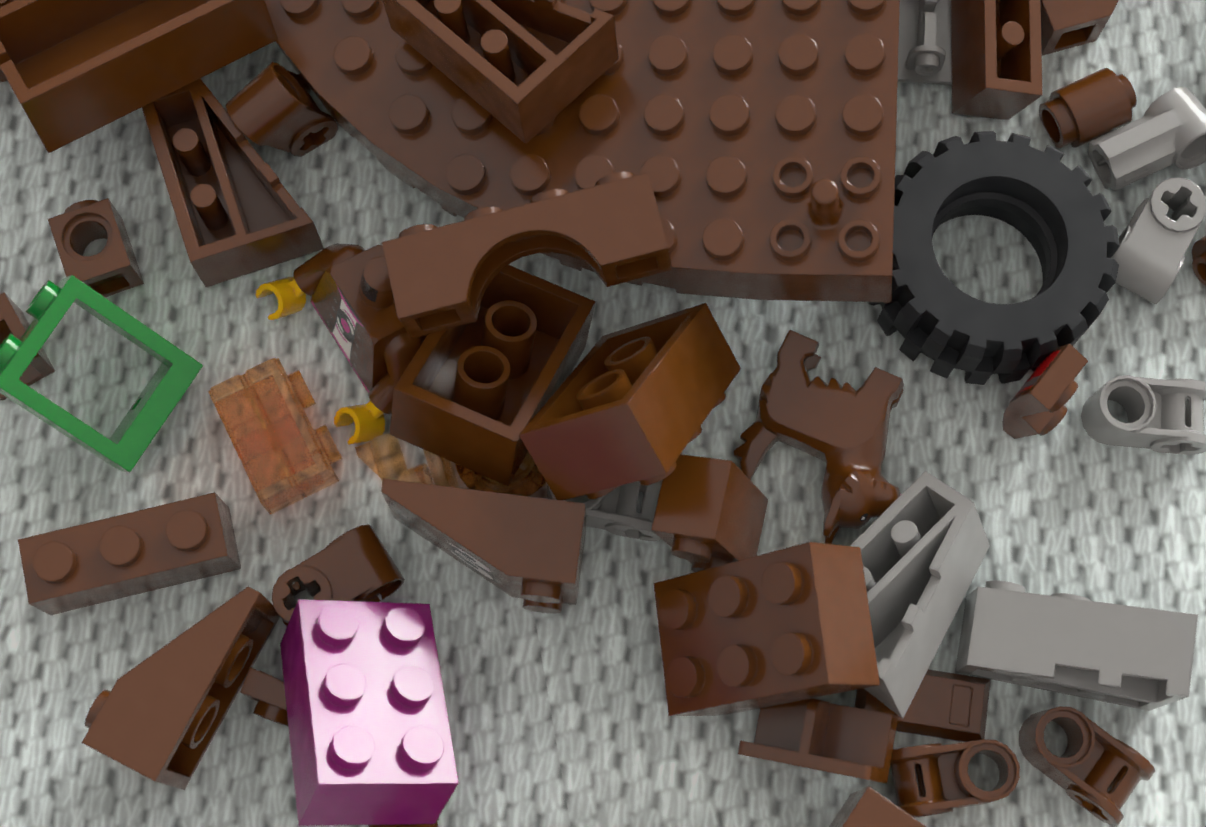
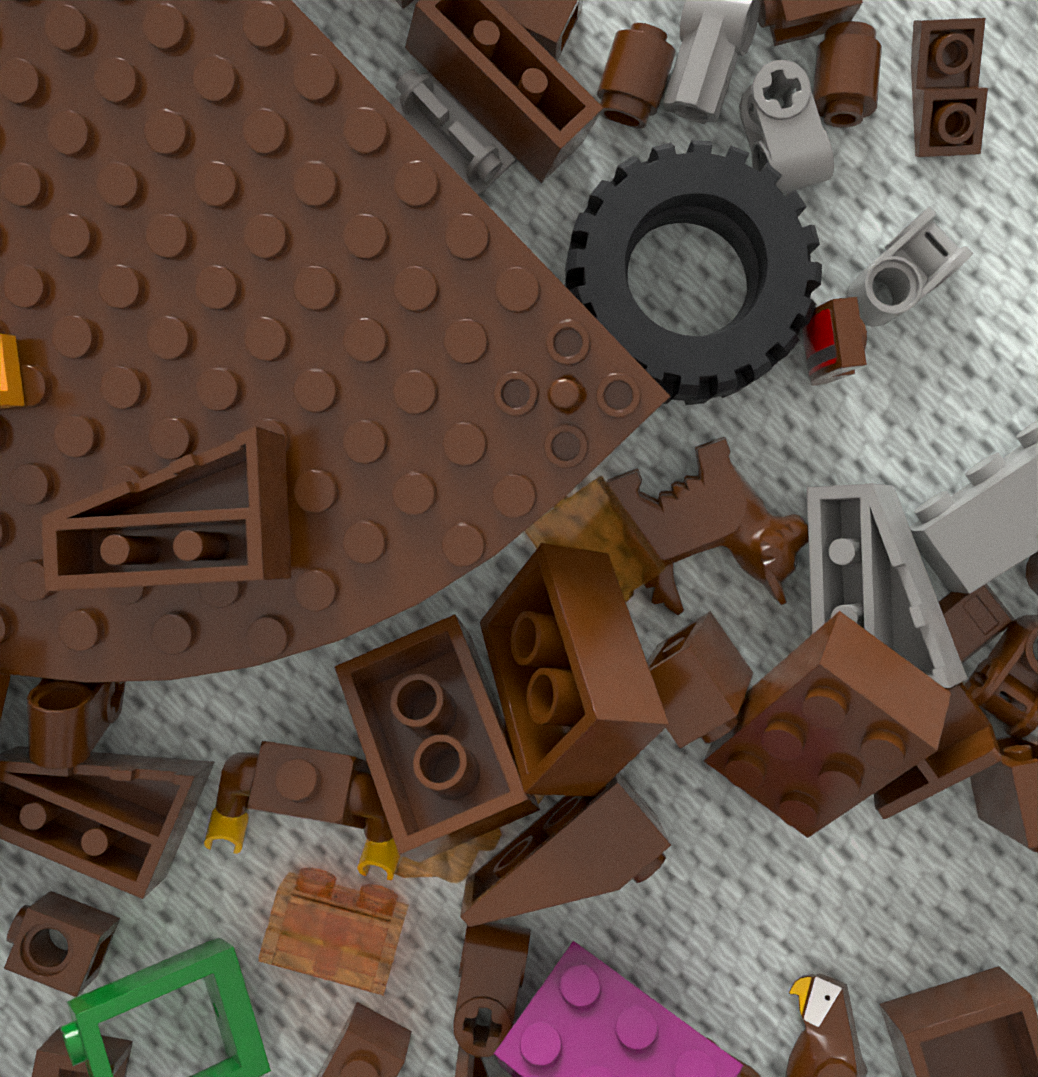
camera: 50 degrees left, 15 degrees up
(446, 269) = (348, 742): reddish brown arch -> none
(760, 351) = (599, 523): none -> clear orange piece

